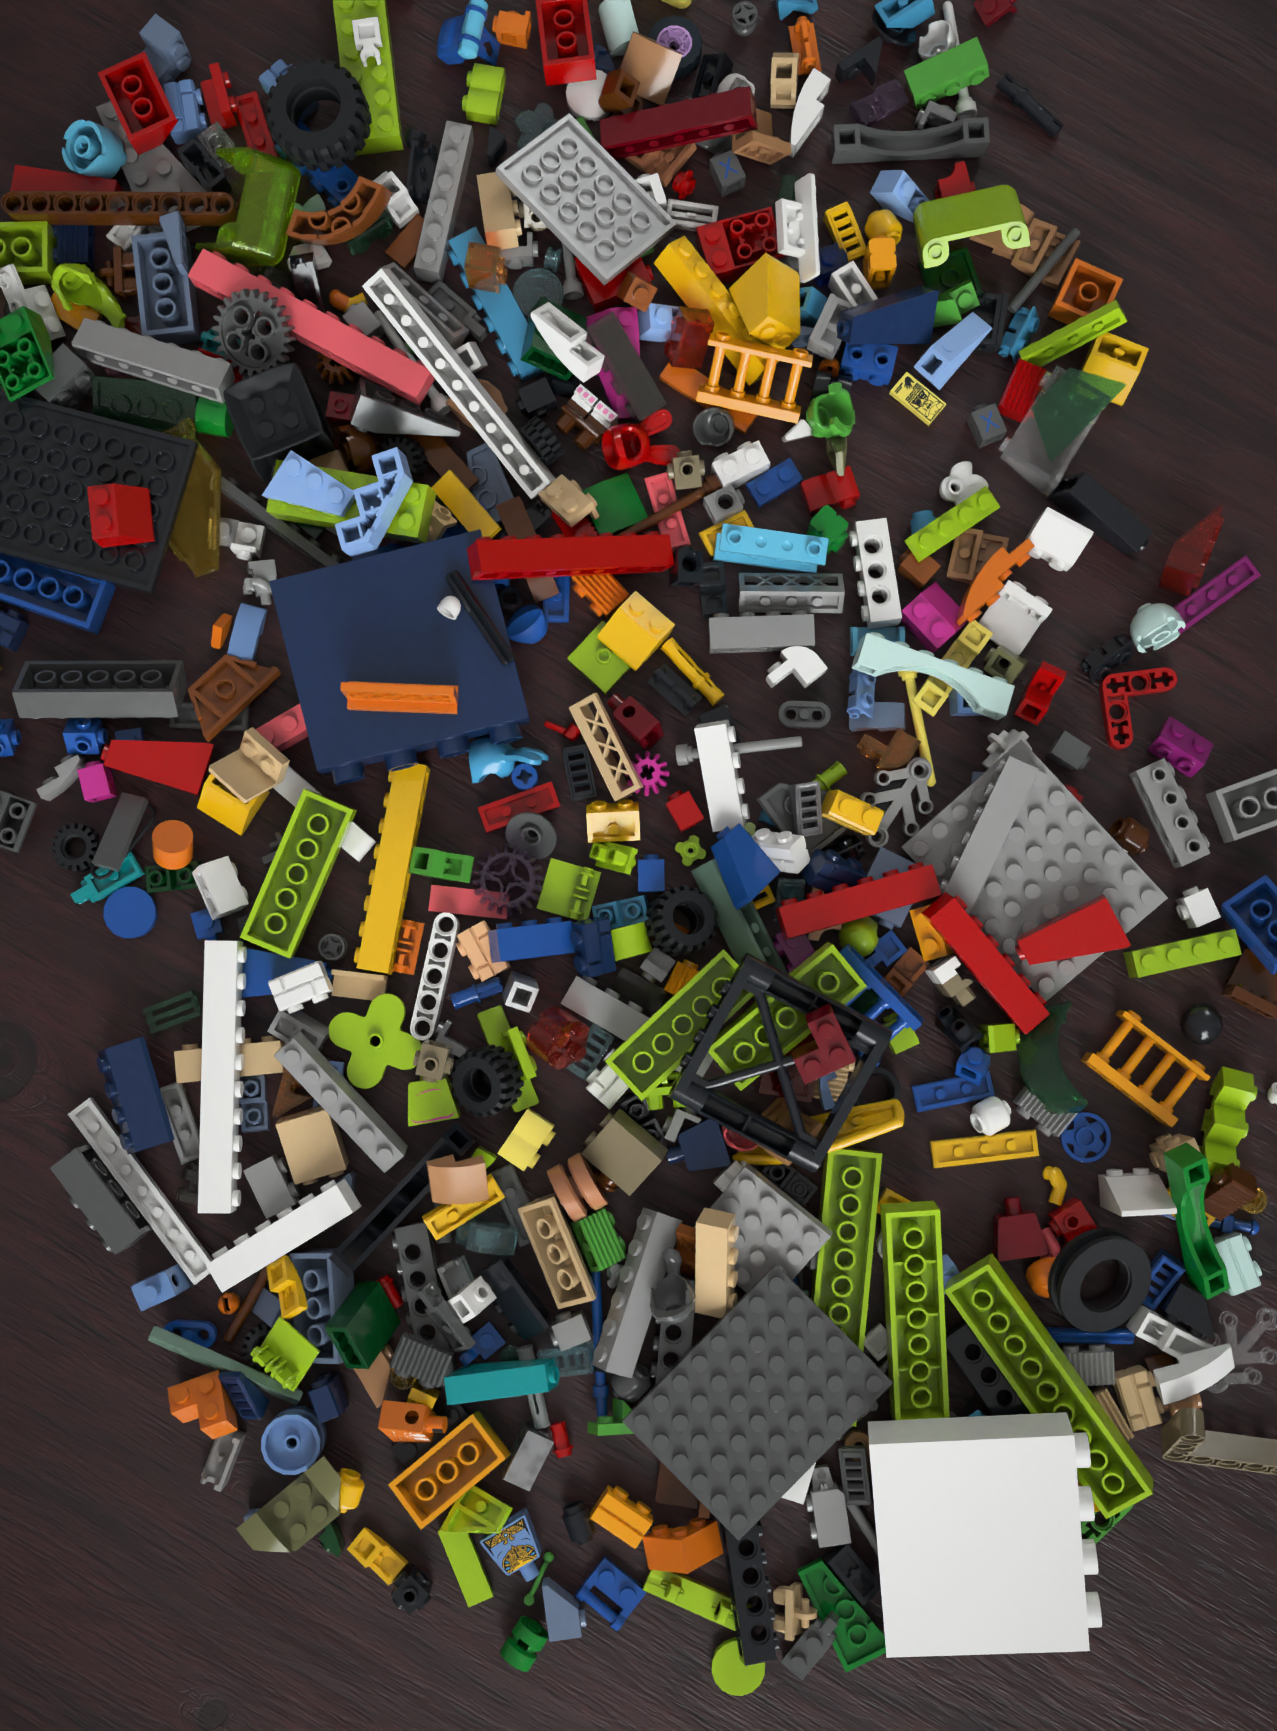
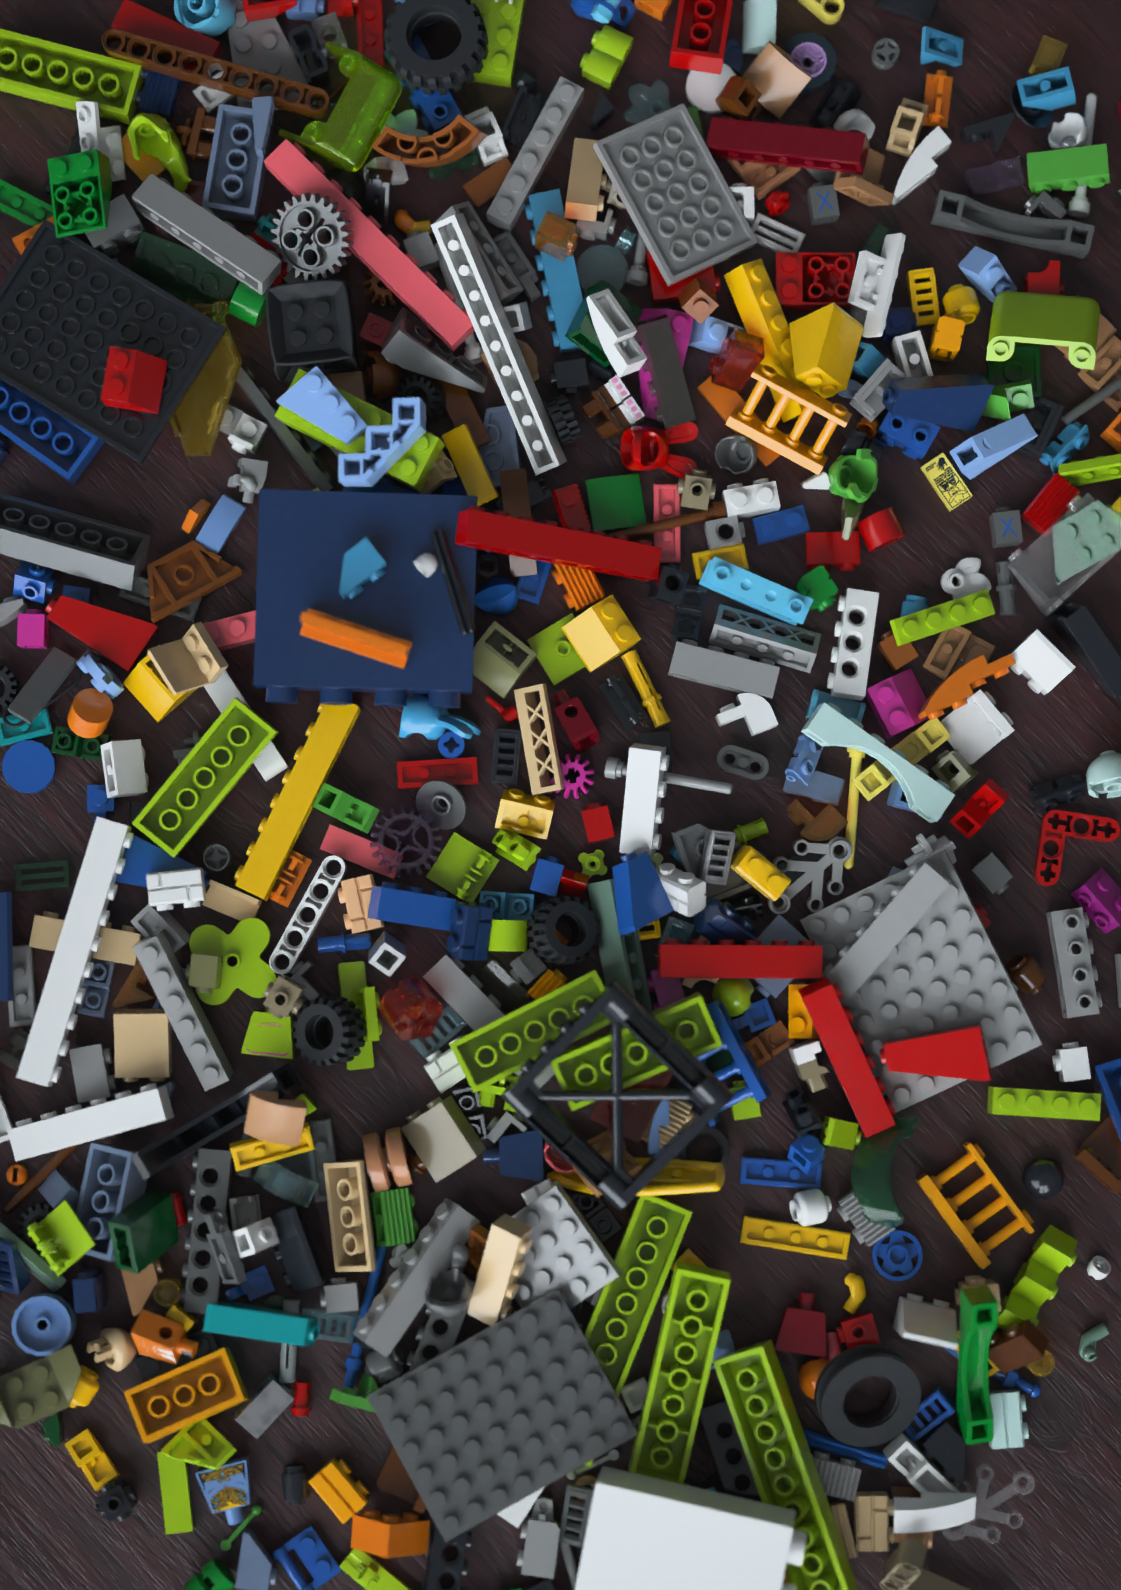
camera: 10 degrees right, 0 degrees up
(174, 807) = (103, 677): none -> light blue plate
(286, 1282) = (81, 1170): yellow slope -> none
(351, 1059) = (204, 972): none -> olive brick
(367, 1443) = (114, 1347): none -> tan piece
(386, 627) = (359, 566): none -> dark azure slope
(421, 1360) = (189, 1281): dark grey brick -> none
(526, 1140) = (351, 1100): light yellow brick -> none
(548, 682) = (501, 659): none -> olive slope
(568, 501) = (571, 489): tan bracket -> none
(677, 874) = (573, 883): none -> red slope
(828, 1050) = (666, 1095): dark red brick -> none
(870, 458) = (880, 529): none -> red piece
(1002, 481) = (1006, 589): none -> dark grey pin

